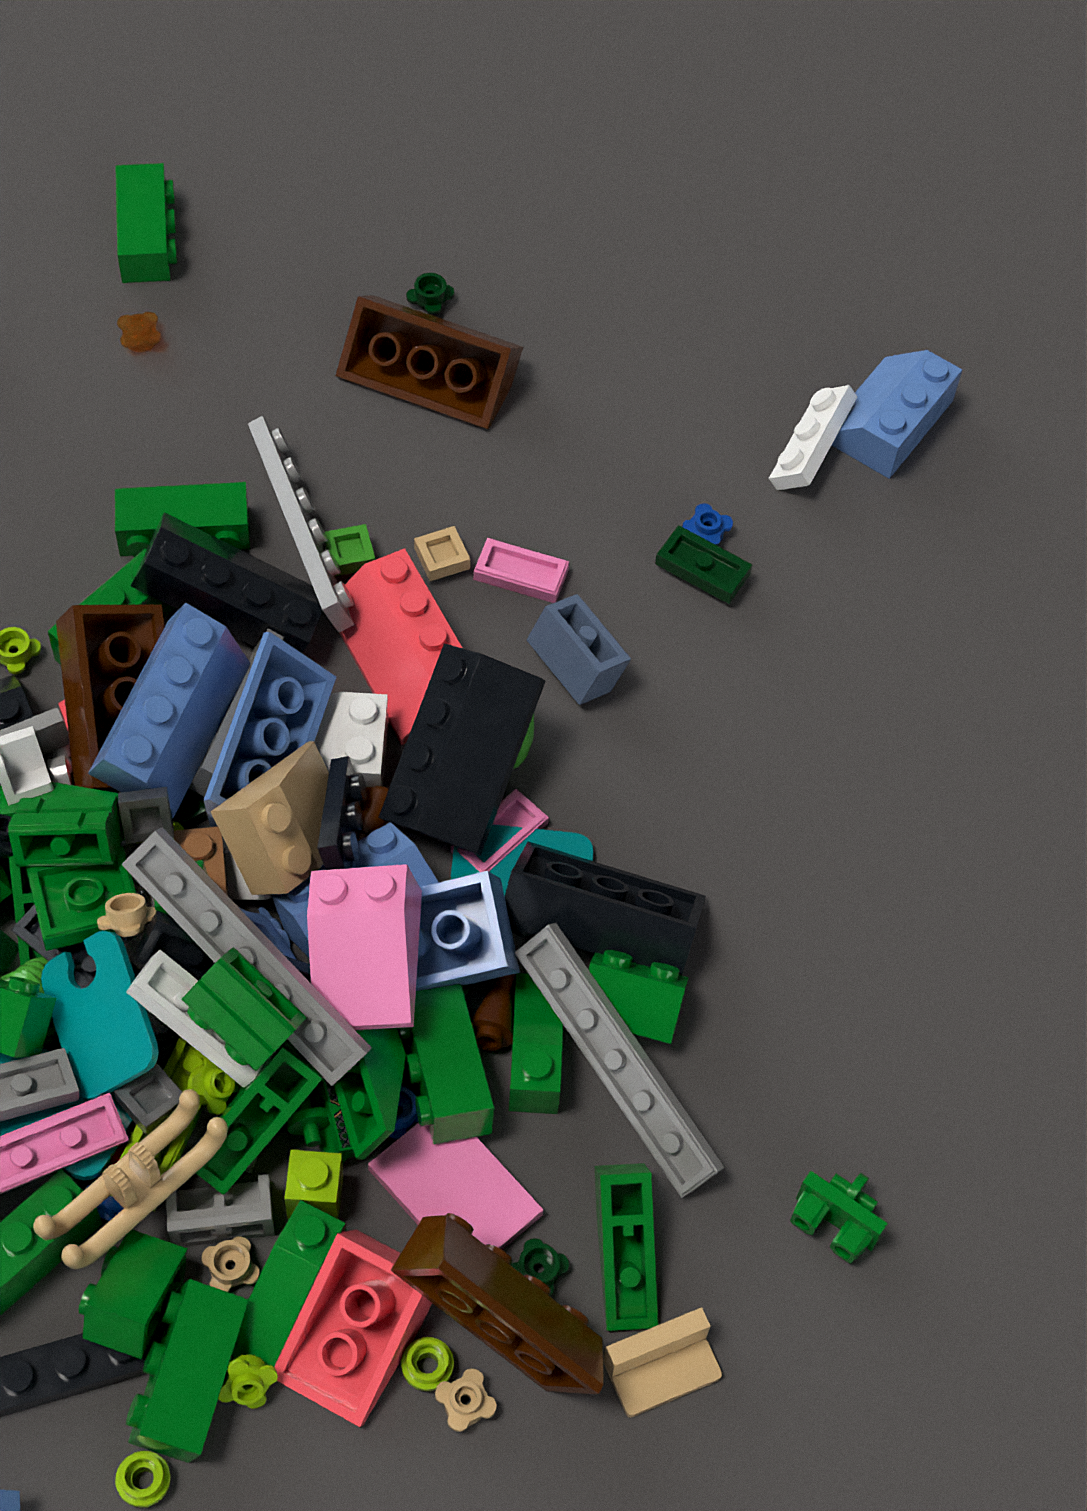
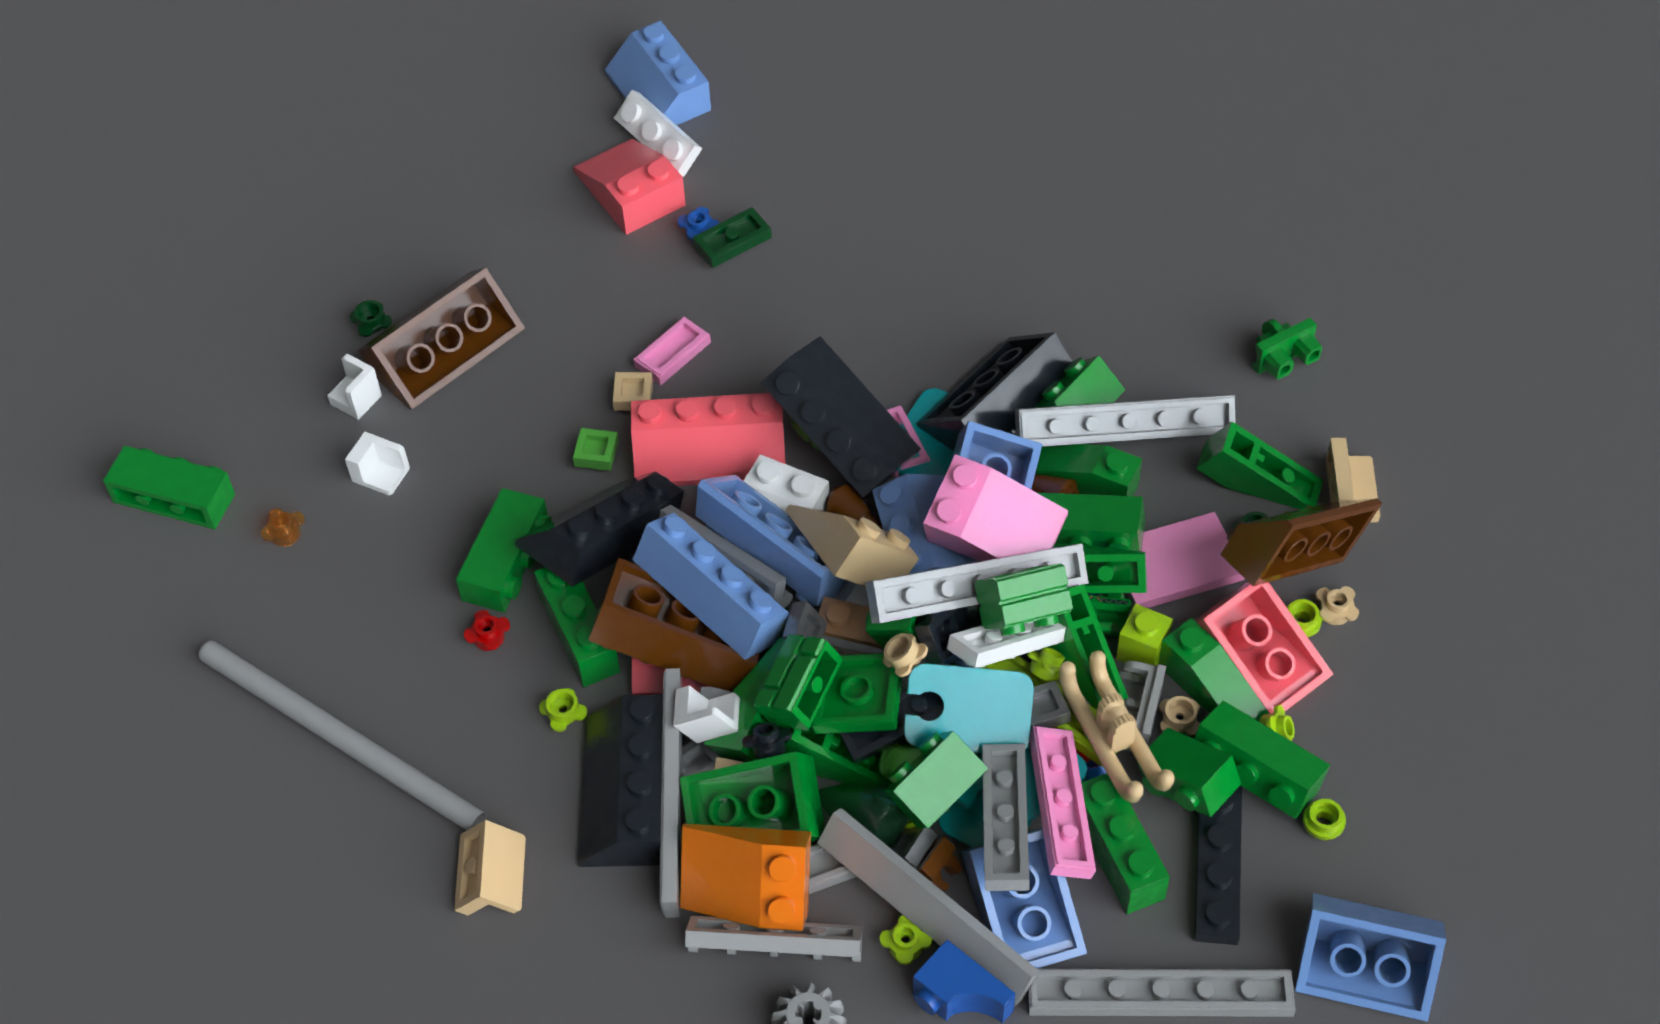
camera: 60 degrees left, 5 degrees down
(86, 556) = (490, 639): none -> red plate
(244, 371) = (377, 463): none -> white panel
(307, 532) = (546, 465): light grey plate -> none
(328, 319) = (357, 390): none -> white panel
(341, 815) = (883, 511): black plate -> none
(578, 649) = (773, 330): sand blue brick -> none
(728, 443) = (633, 184): none -> coral slope

